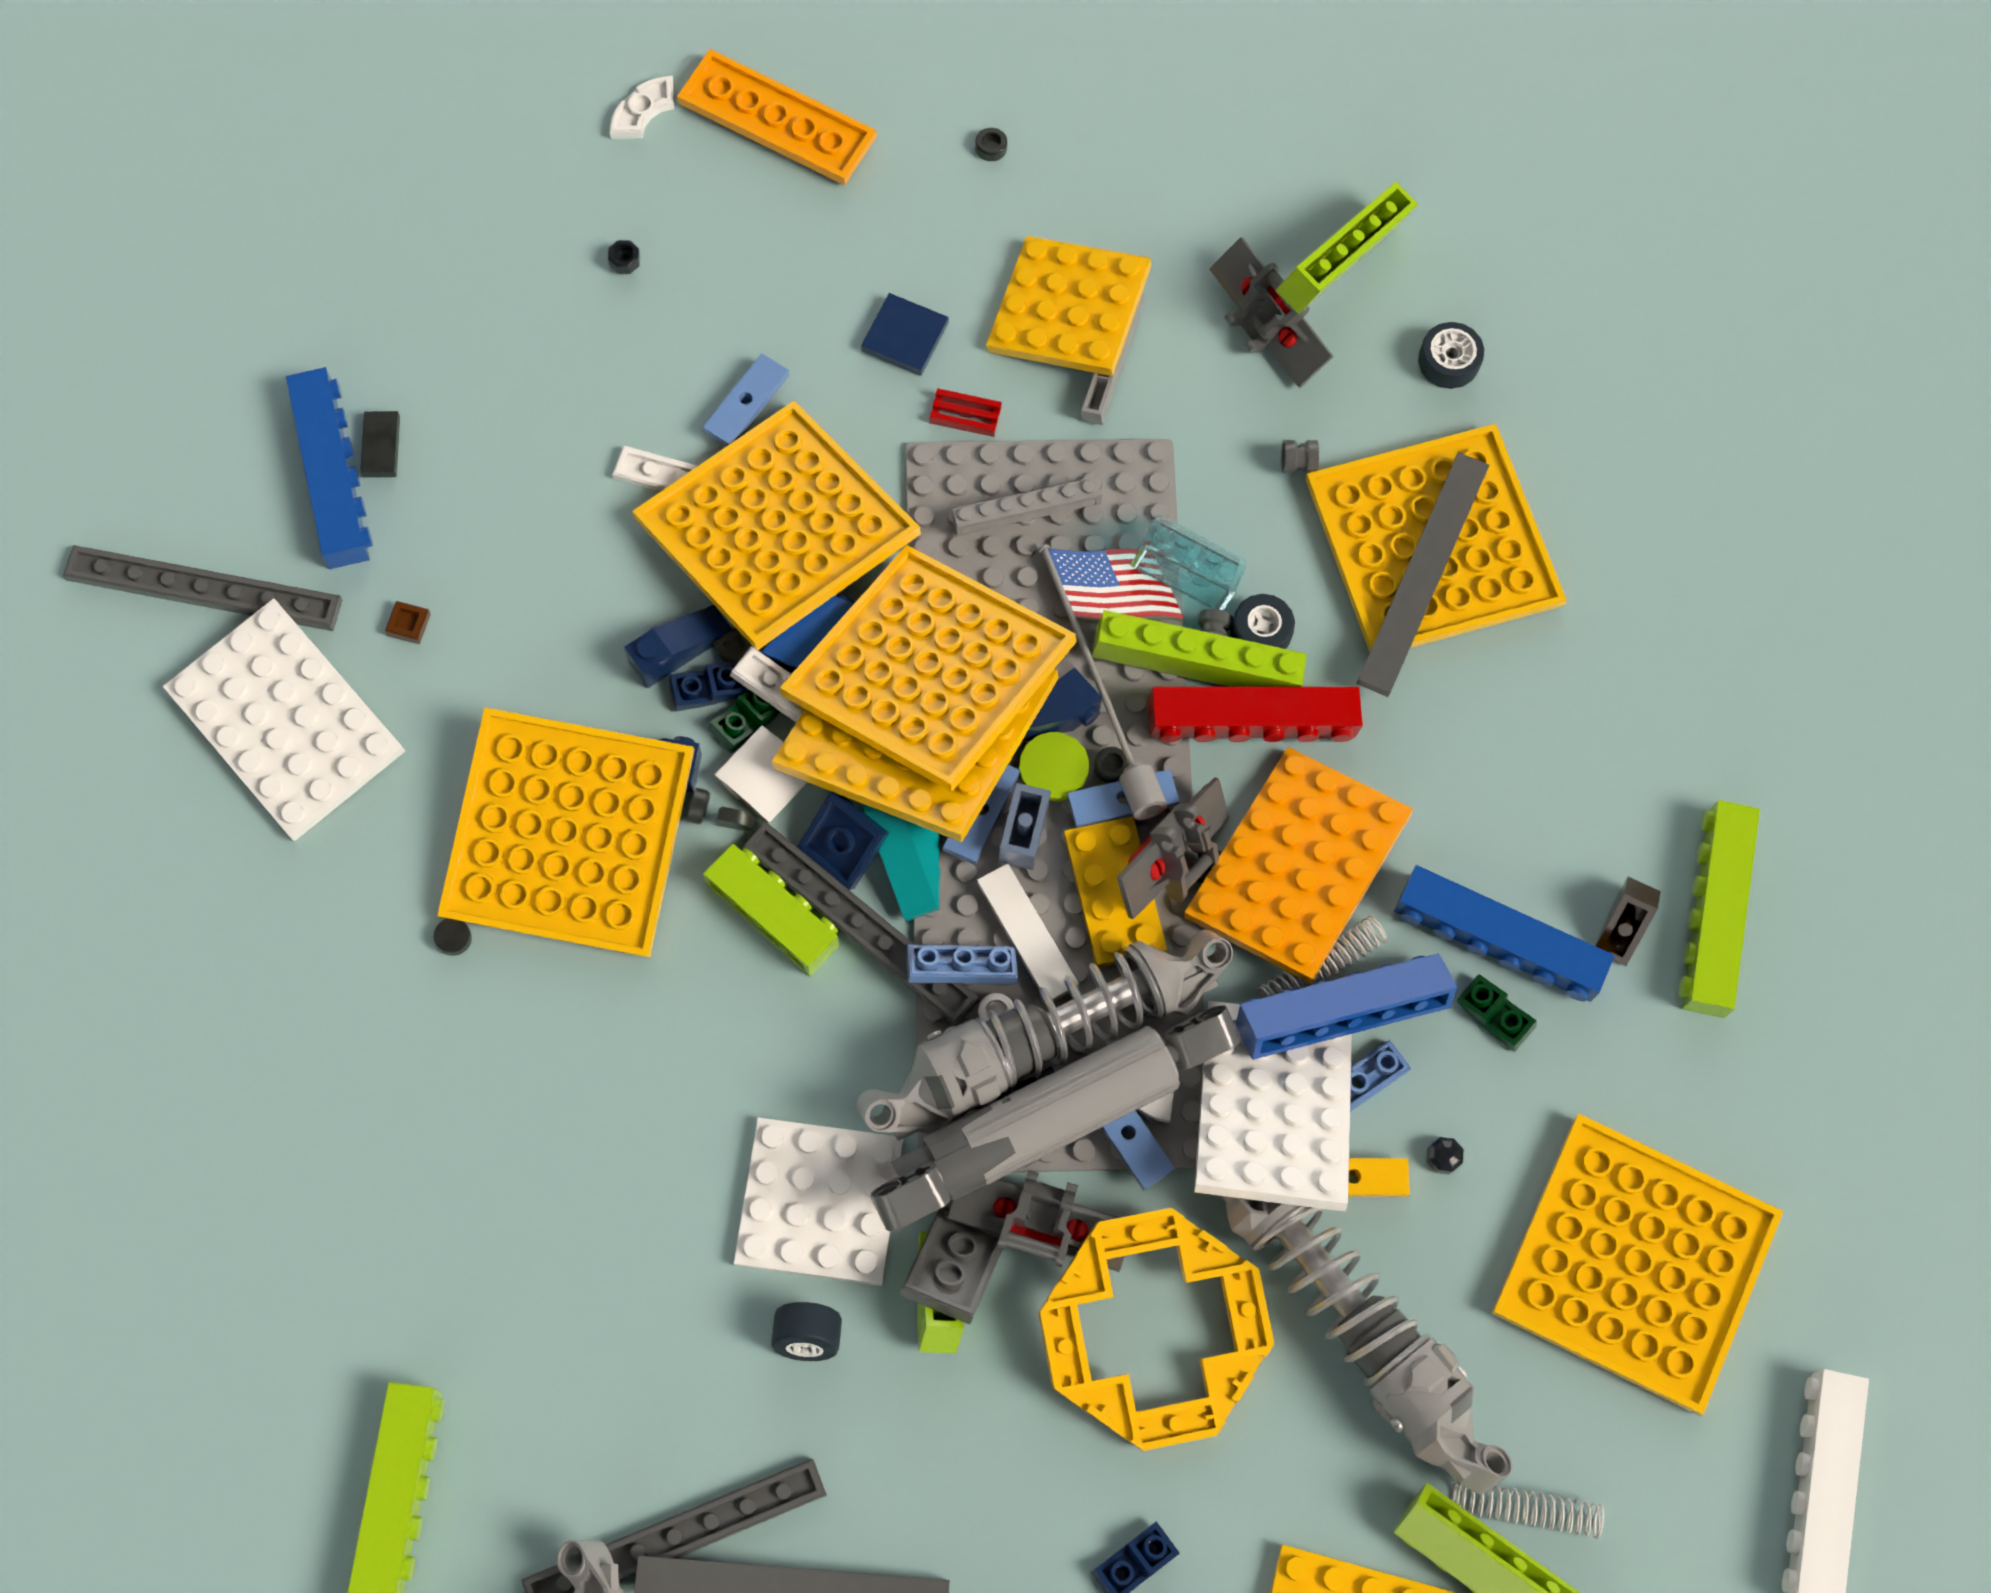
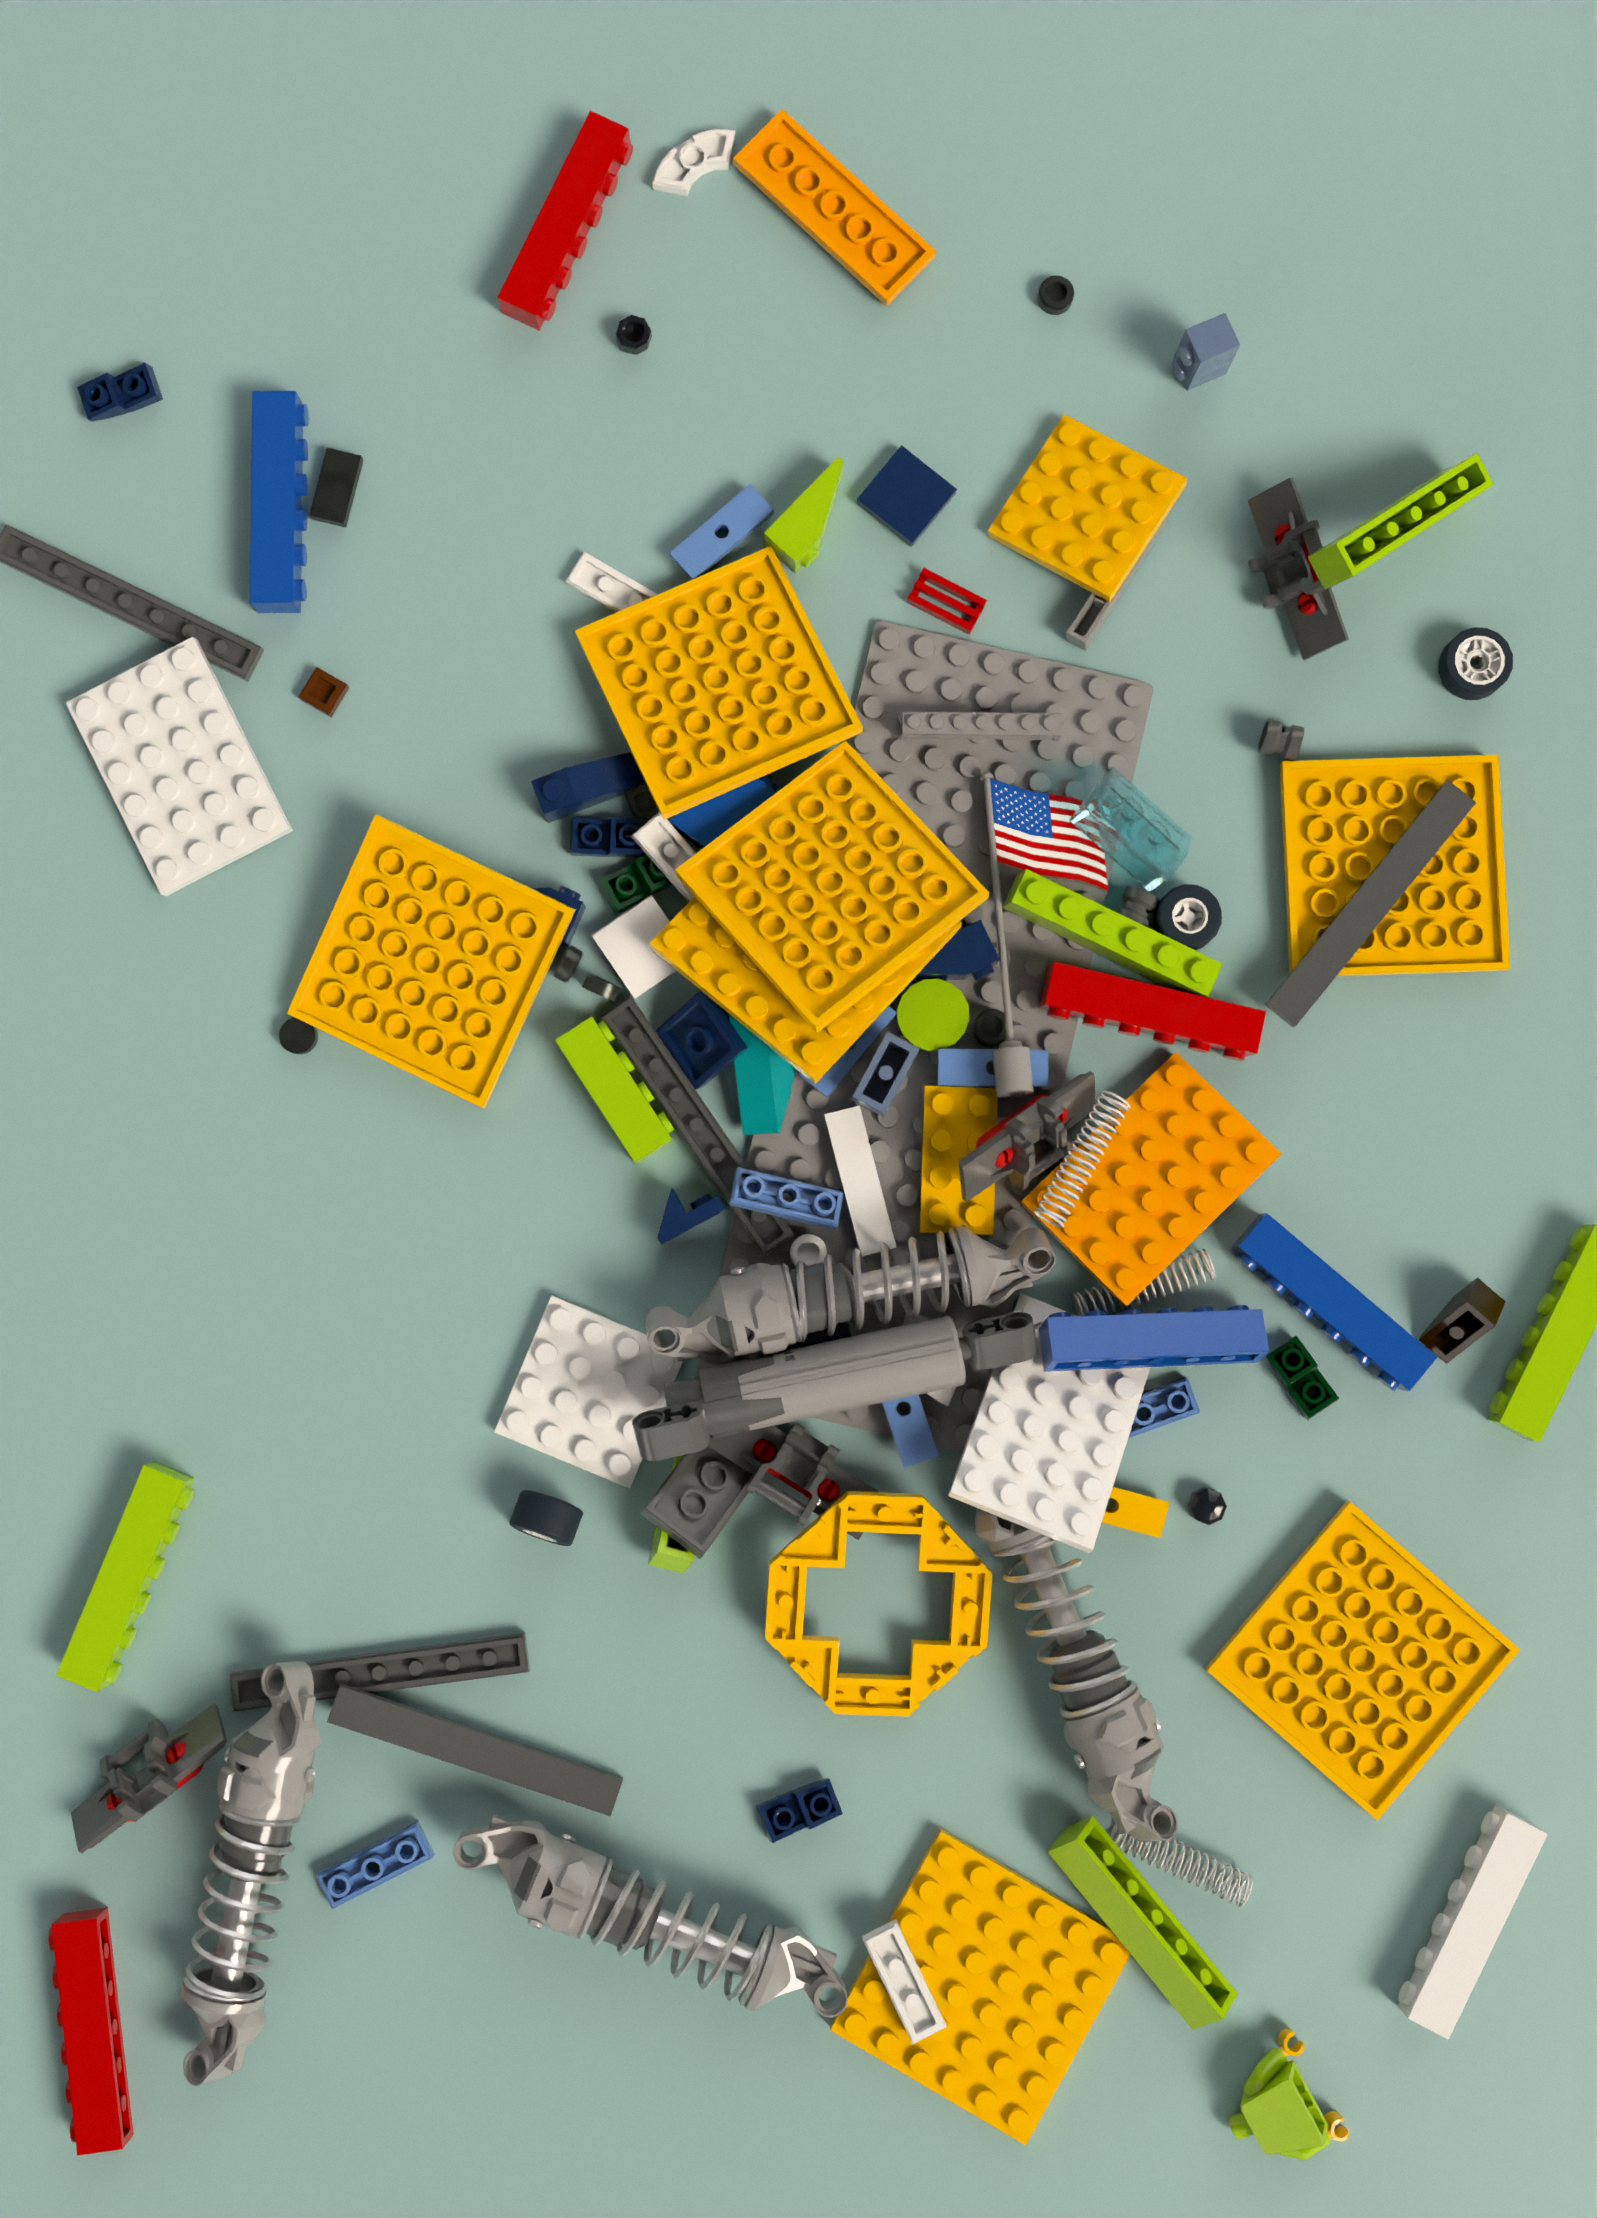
camera: 15 degrees right, 15 degrees up
(153, 414) = (119, 395): none -> dark blue slope
(539, 179) = (565, 221): none -> red brick
(817, 378) = (802, 526): none -> lime slope
(866, 1014) = (678, 1221): none -> dark blue slope
(1136, 155) = (1205, 352): none -> sand blue brick
(1244, 810) = (1053, 1215): none -> white piece

